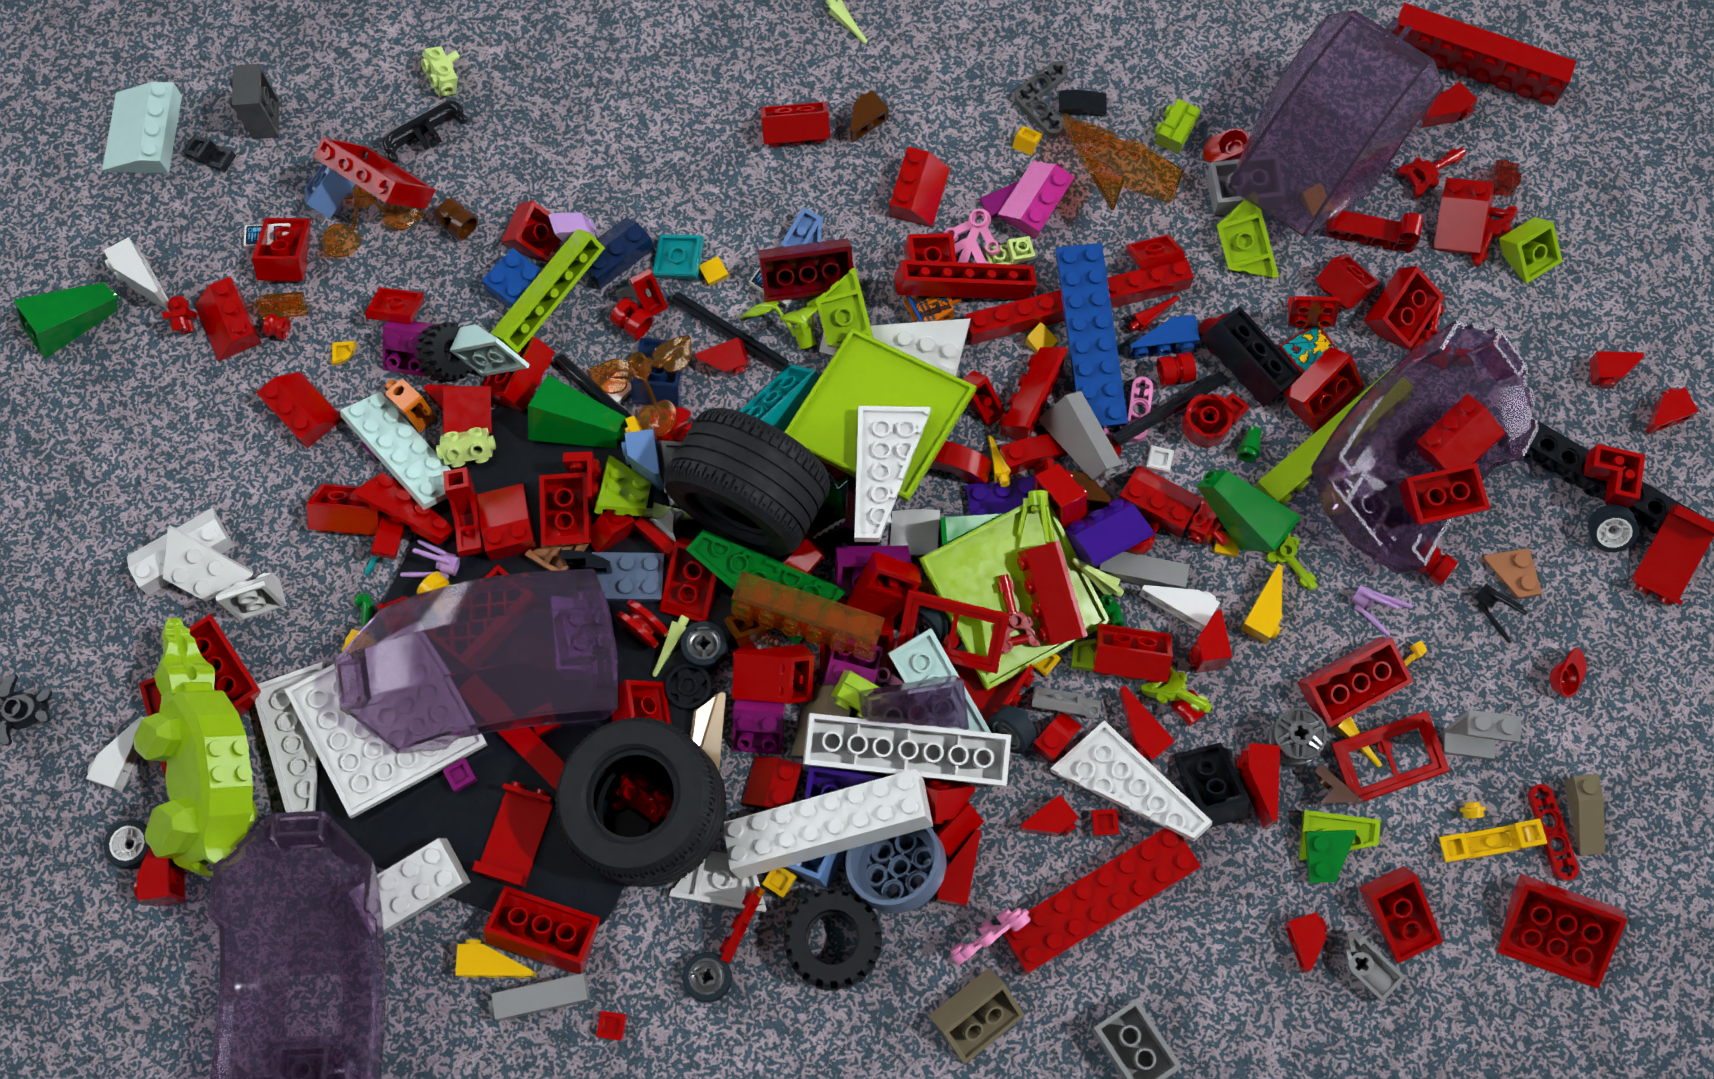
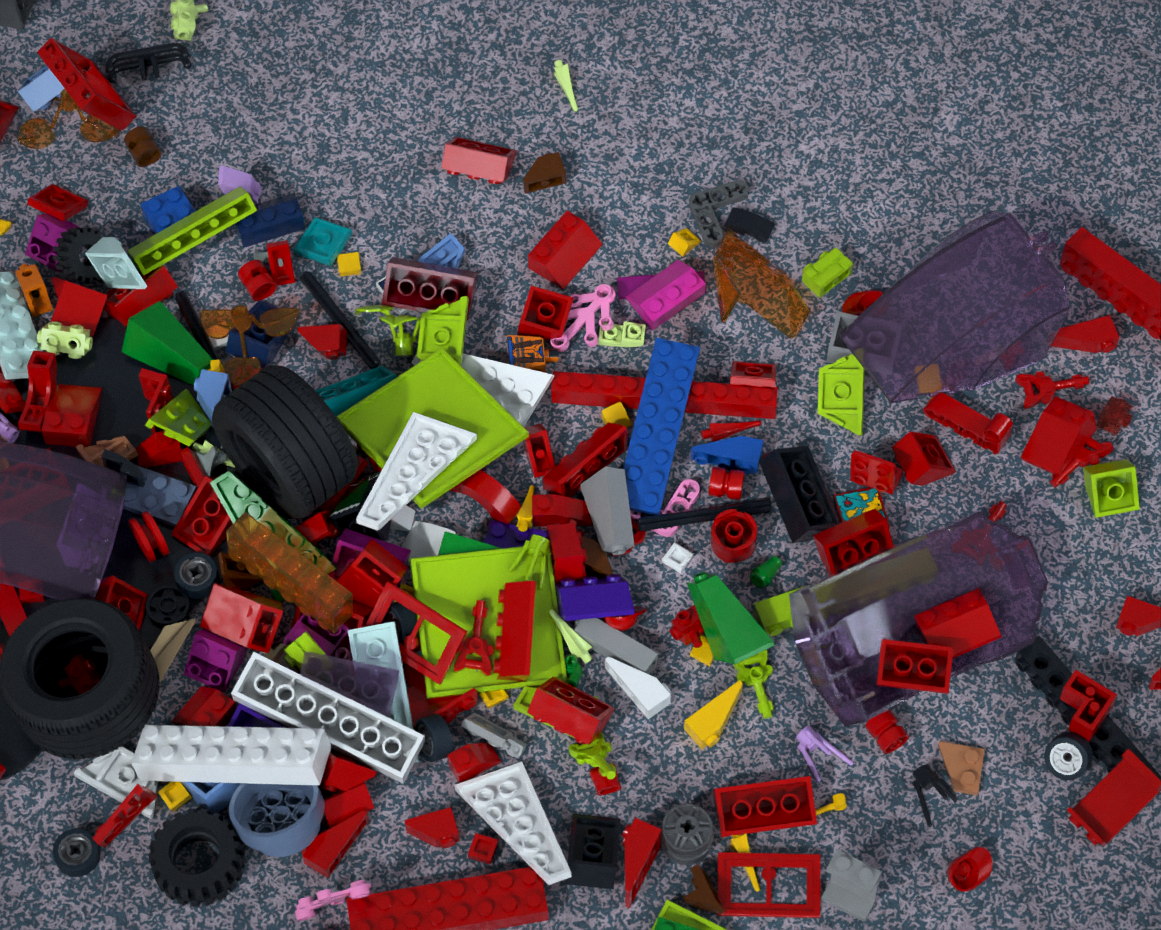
camera: 20 degrees right, 10 degrees down
(531, 232) = (200, 178): red slope -> none
(564, 509) = (124, 419): red slope -> none
(673, 639) = (168, 564): yellowish green piece -> none
(964, 279) = (564, 340): red brick -> none
(1145, 731) = (554, 785): red slope -> none
(1160, 500) = (657, 590): red slope -> none
(1212, 646) = (643, 727): red slope -> none
(1238, 406) = (767, 536): red tile -> none
(1404, 307) = (965, 494): red slope -> none

